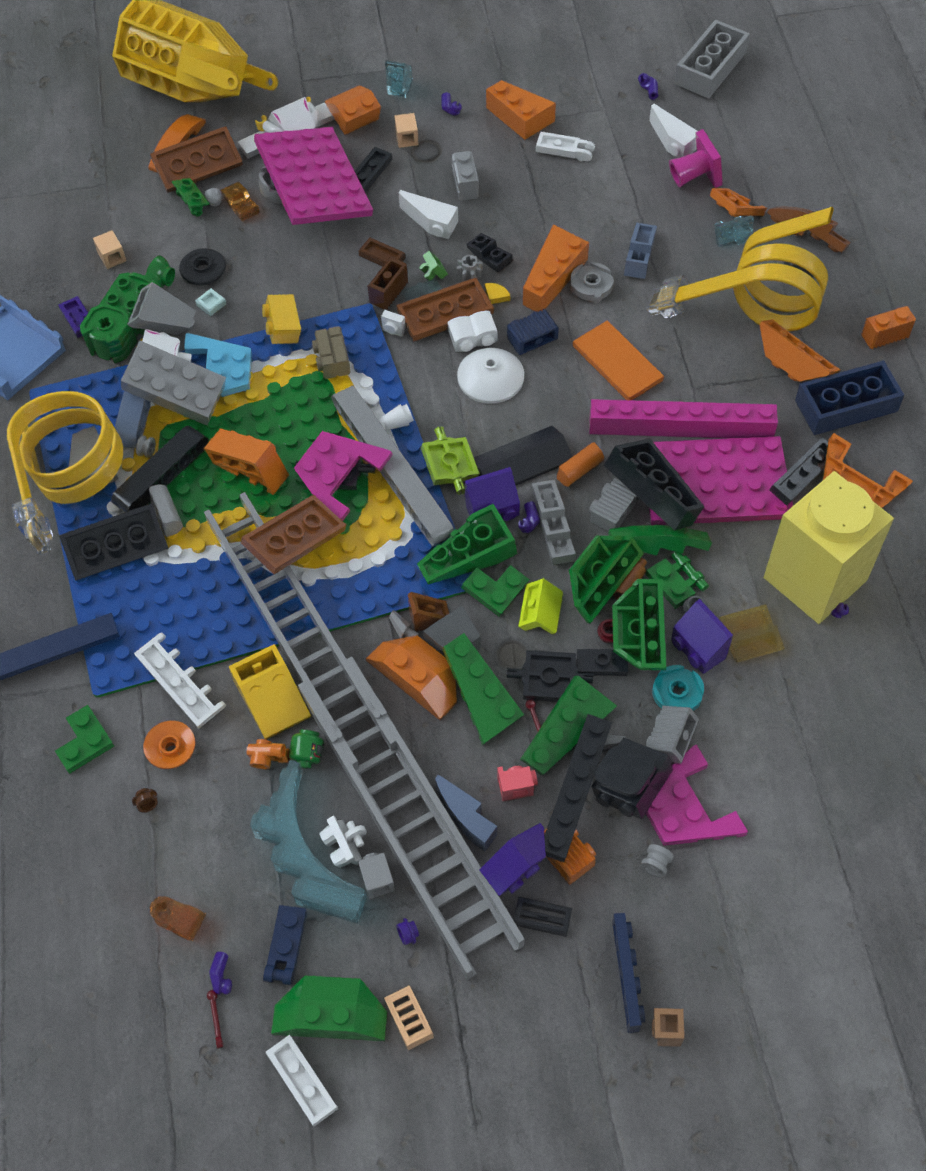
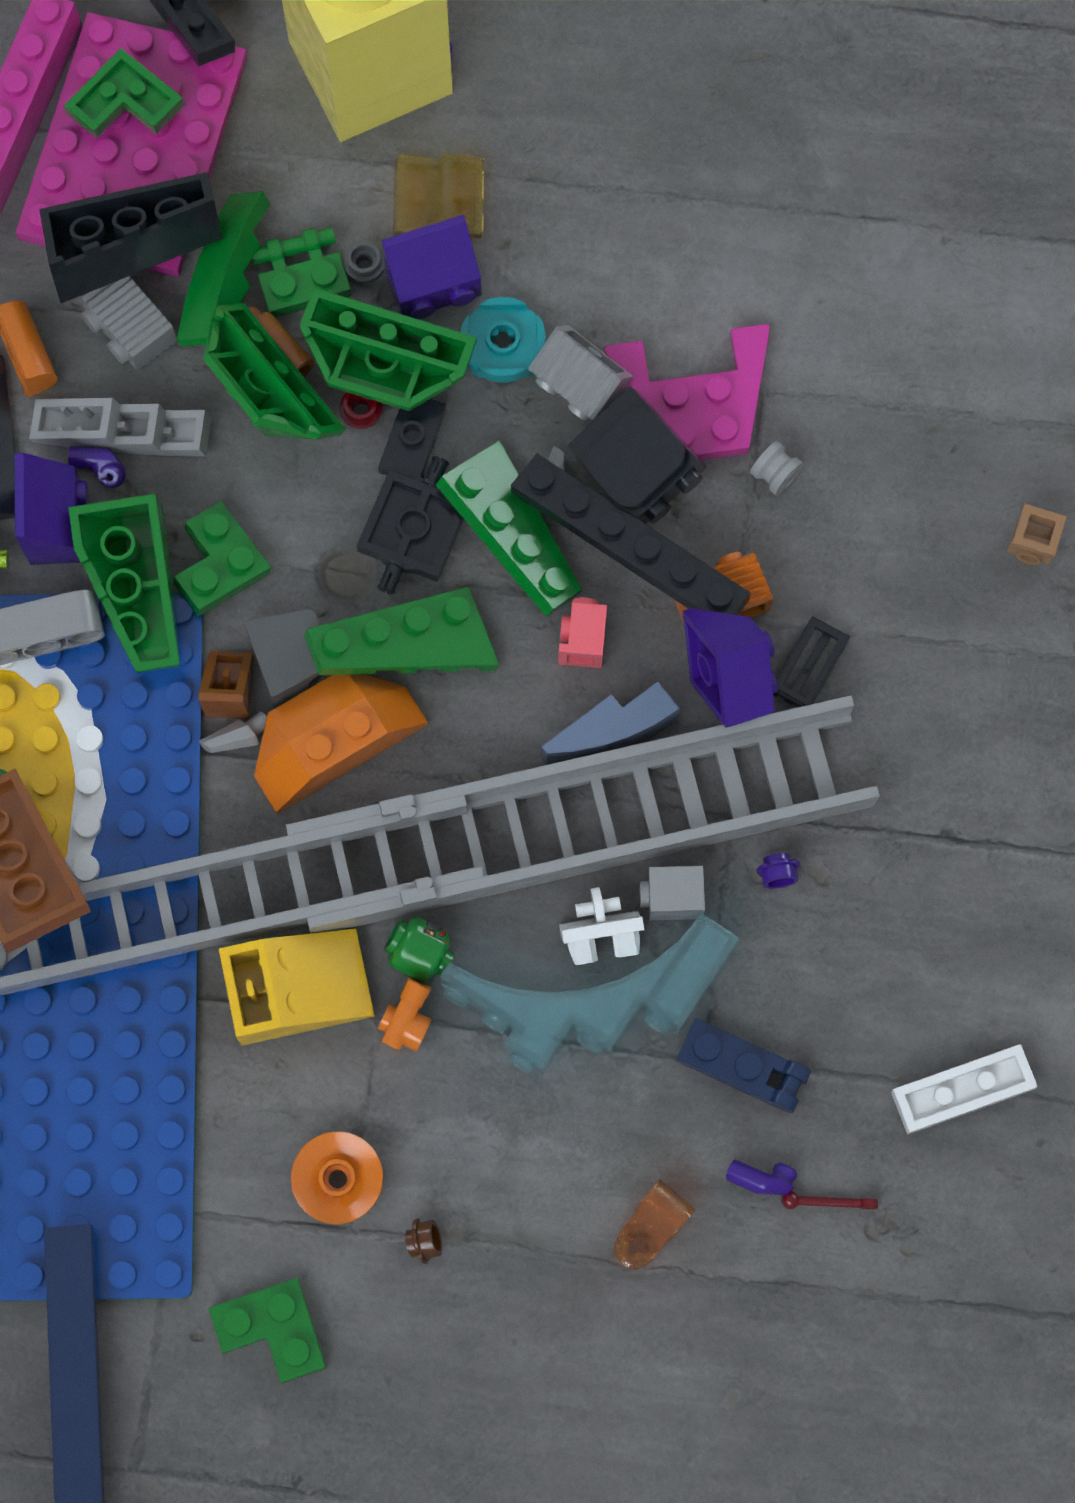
camera: 75 degrees left, 15 degrees up
(177, 682) = (221, 1138): white hinge -> none
(330, 1010) = (867, 1022): green wedge -> none
(419, 1037) = (926, 886): light nougat slope -> none
(531, 706) = (452, 573): dark red hinge -> none
(541, 606) = (278, 501): neon yellow panel -> none
(629, 984) = (949, 571): dark blue plate -> none
(740, 459) = (119, 87): none -> green plate

